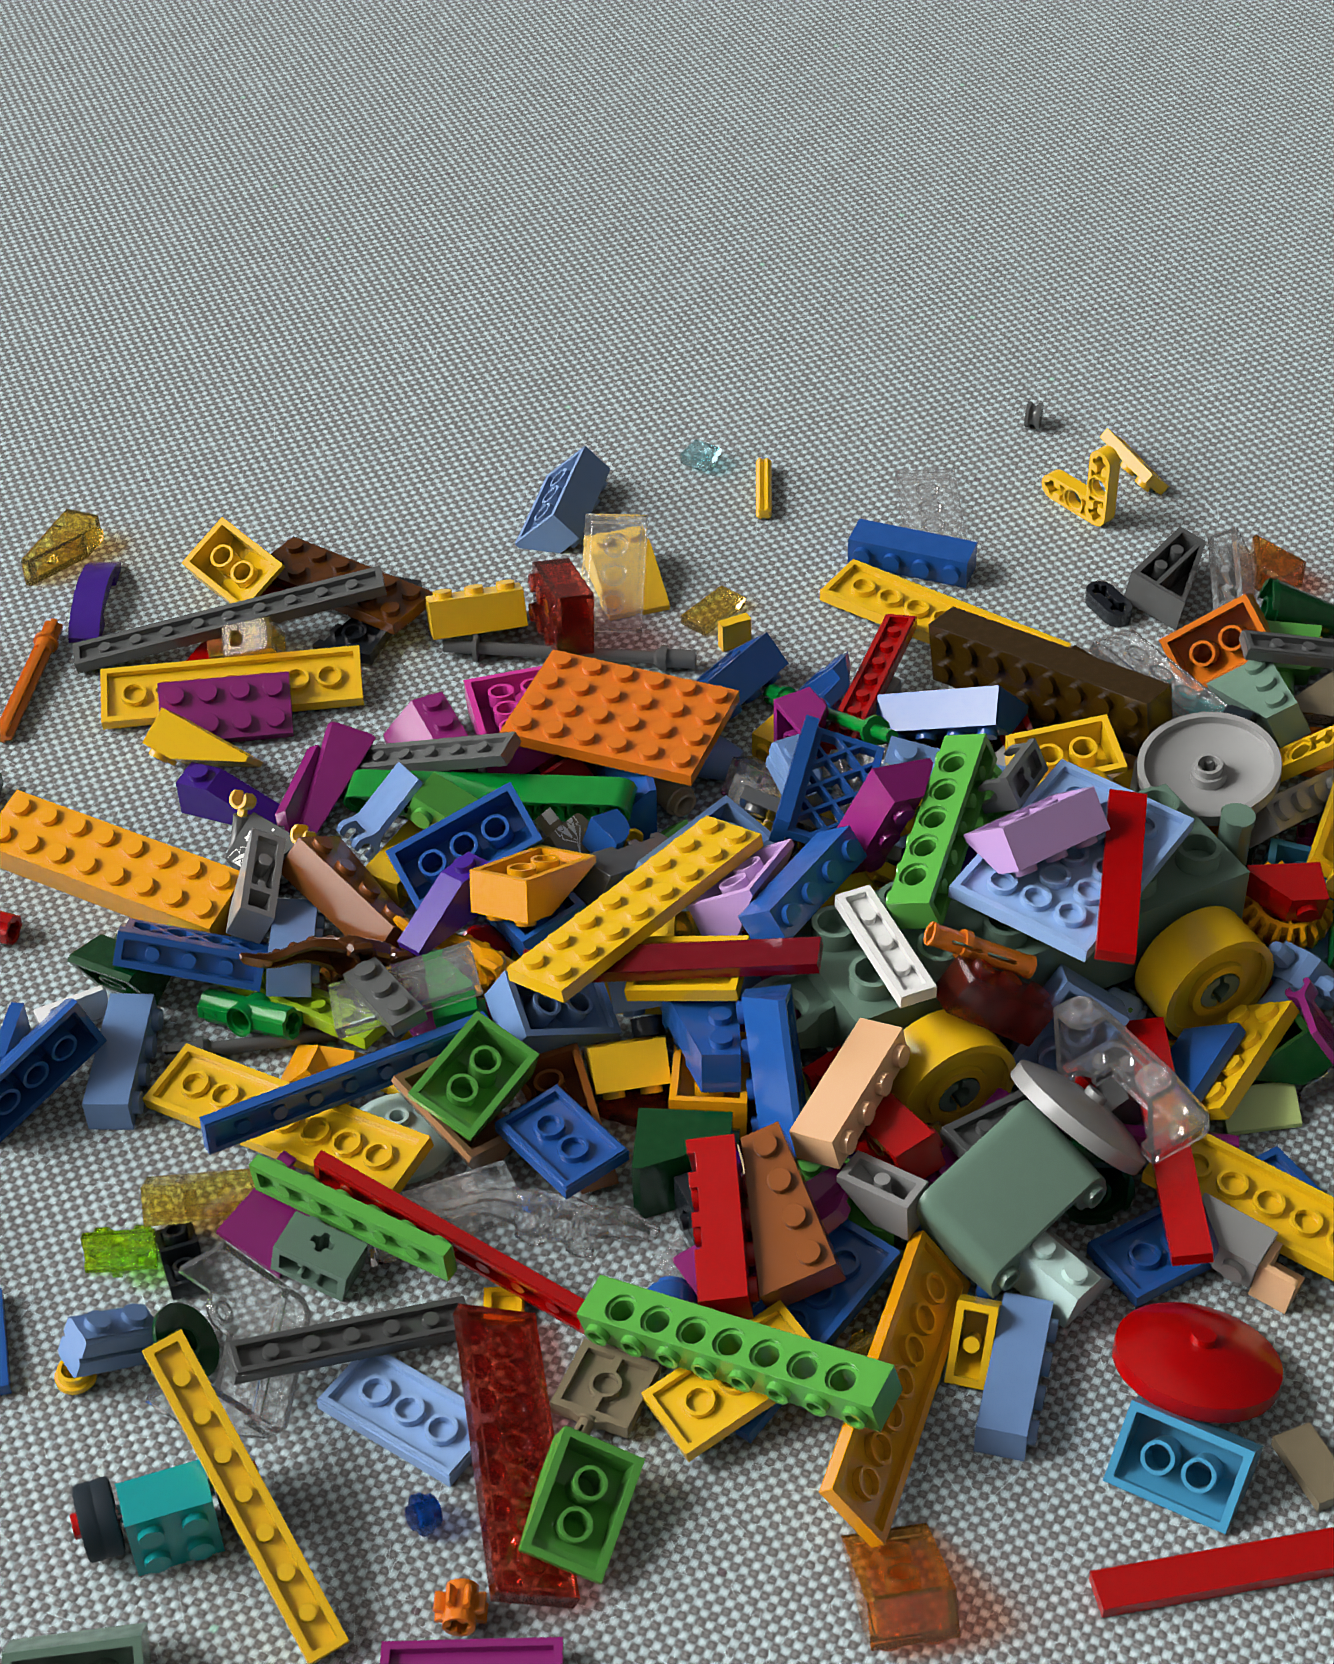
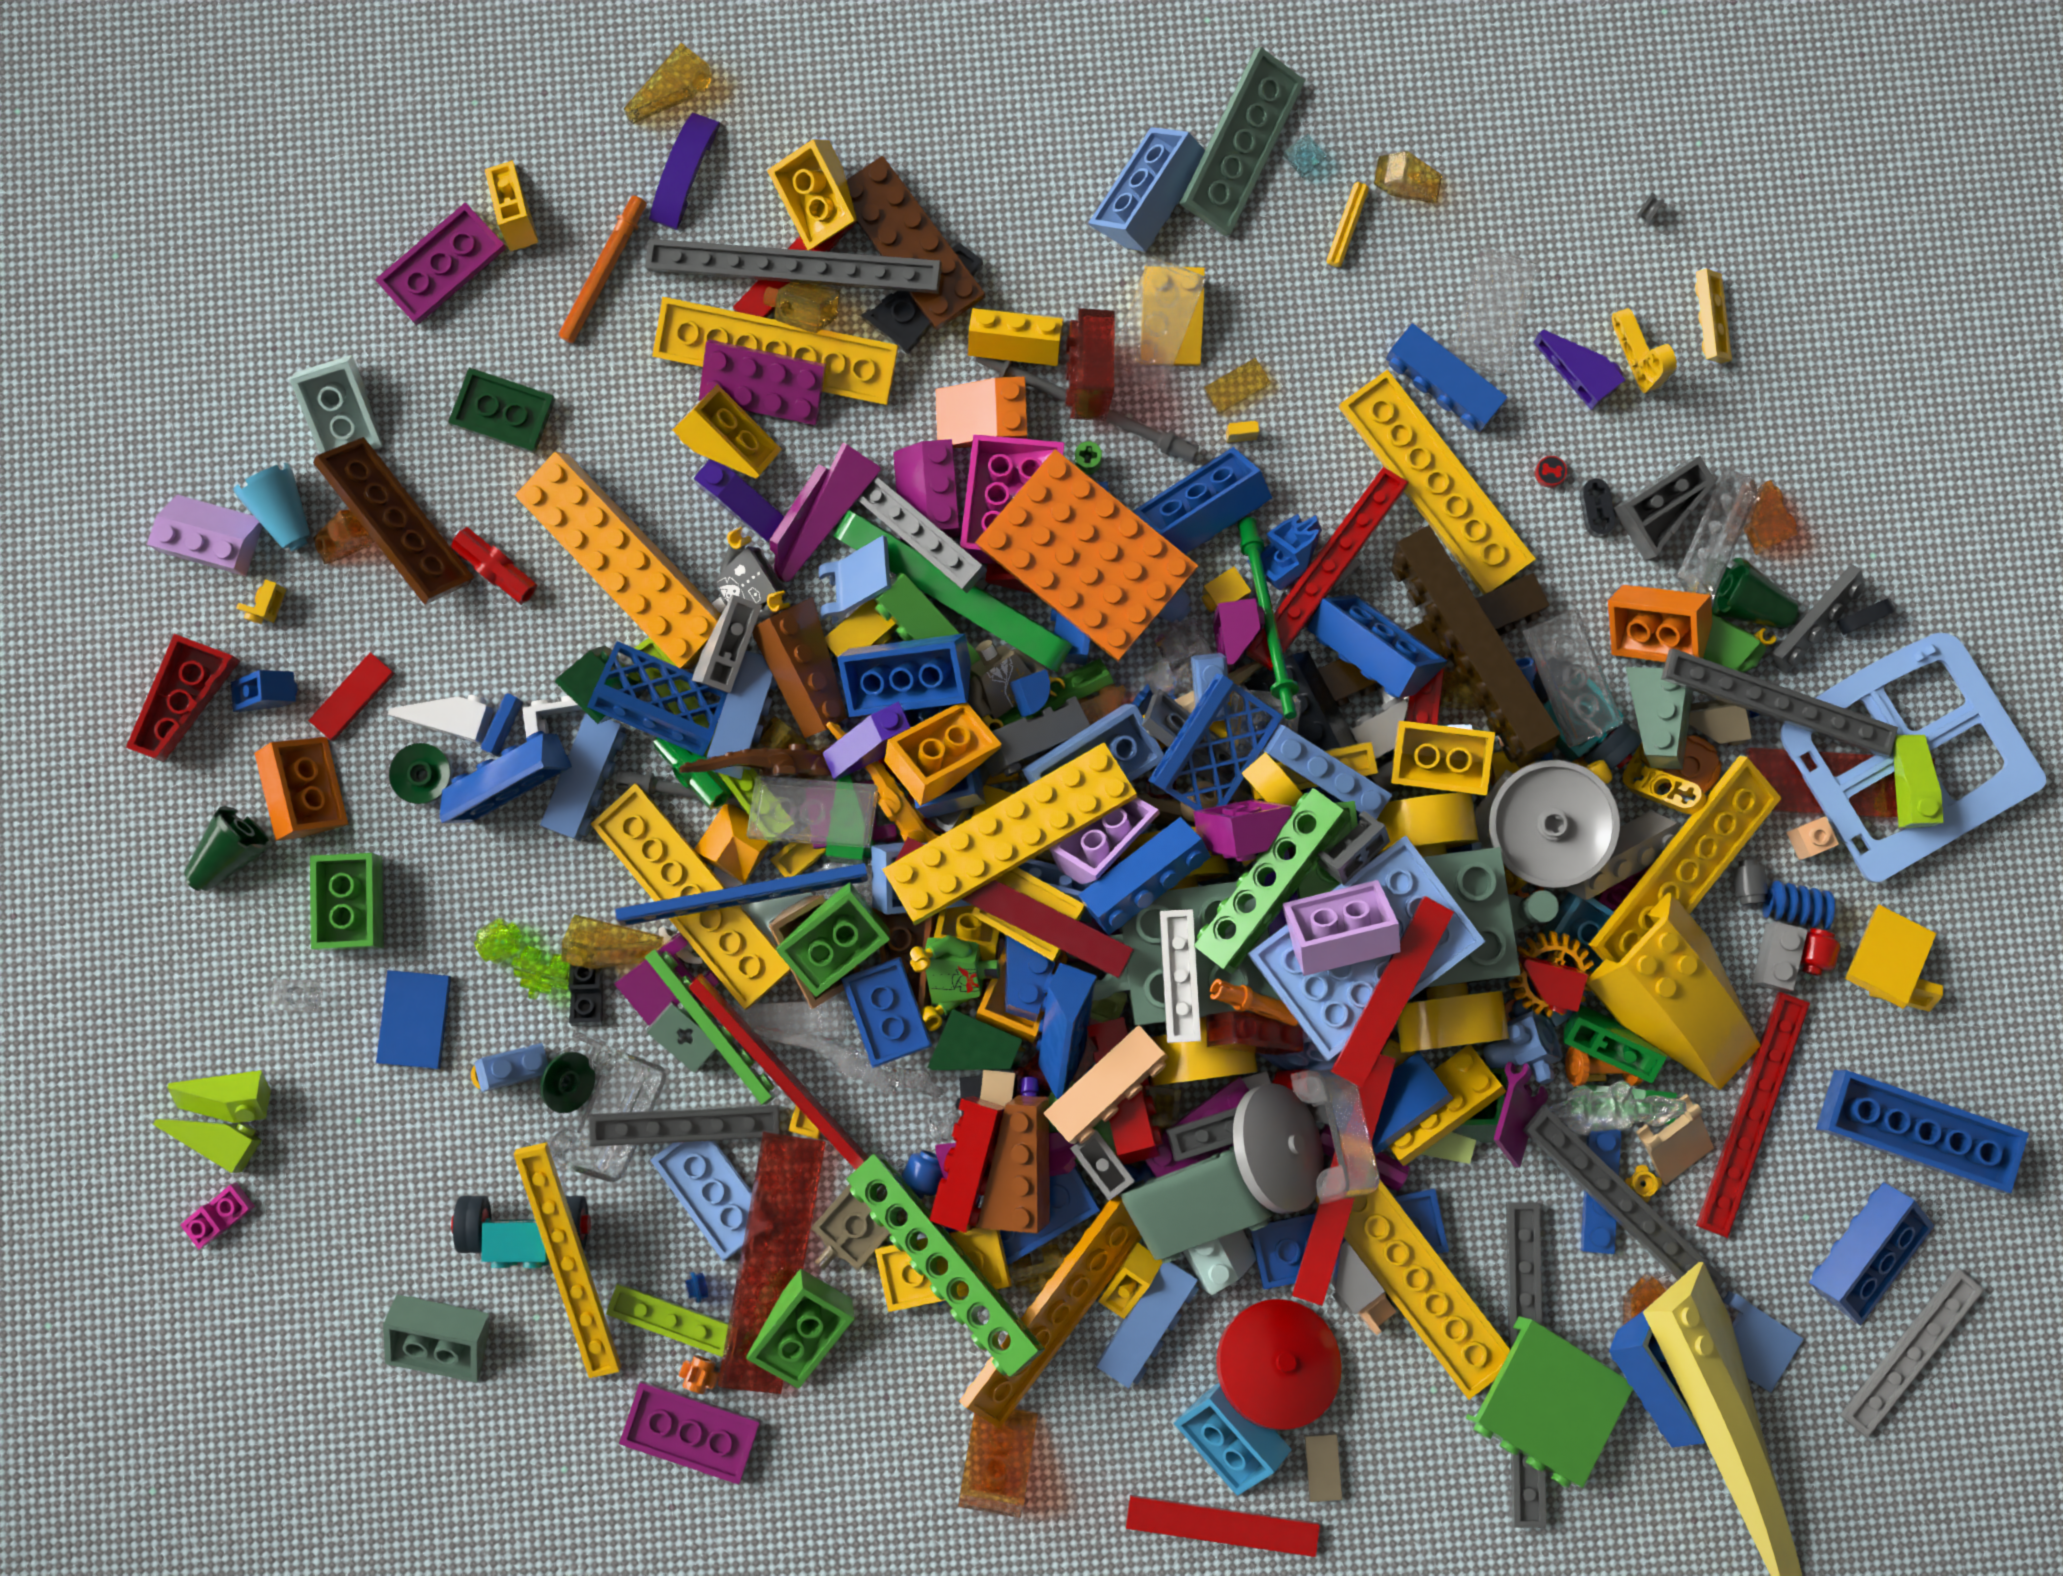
camera: 20 degrees right, 40 degrees up
(56, 1236) = (498, 940): none -> clear neon green head
(385, 996) = (791, 824): dark grey plate -> none
(397, 1562) = (668, 1319): none -> lime plate
(471, 660) = (982, 408): none -> slope
(625, 1073) = (953, 974): none -> bright green torso
(637, 455) = (1242, 141): none -> sand green plate
(802, 444) = (1407, 177): none -> clear yellow slope
(1034, 518) = (1584, 370): none -> dark purple slope
(1048, 592) = (1550, 471): none -> tile

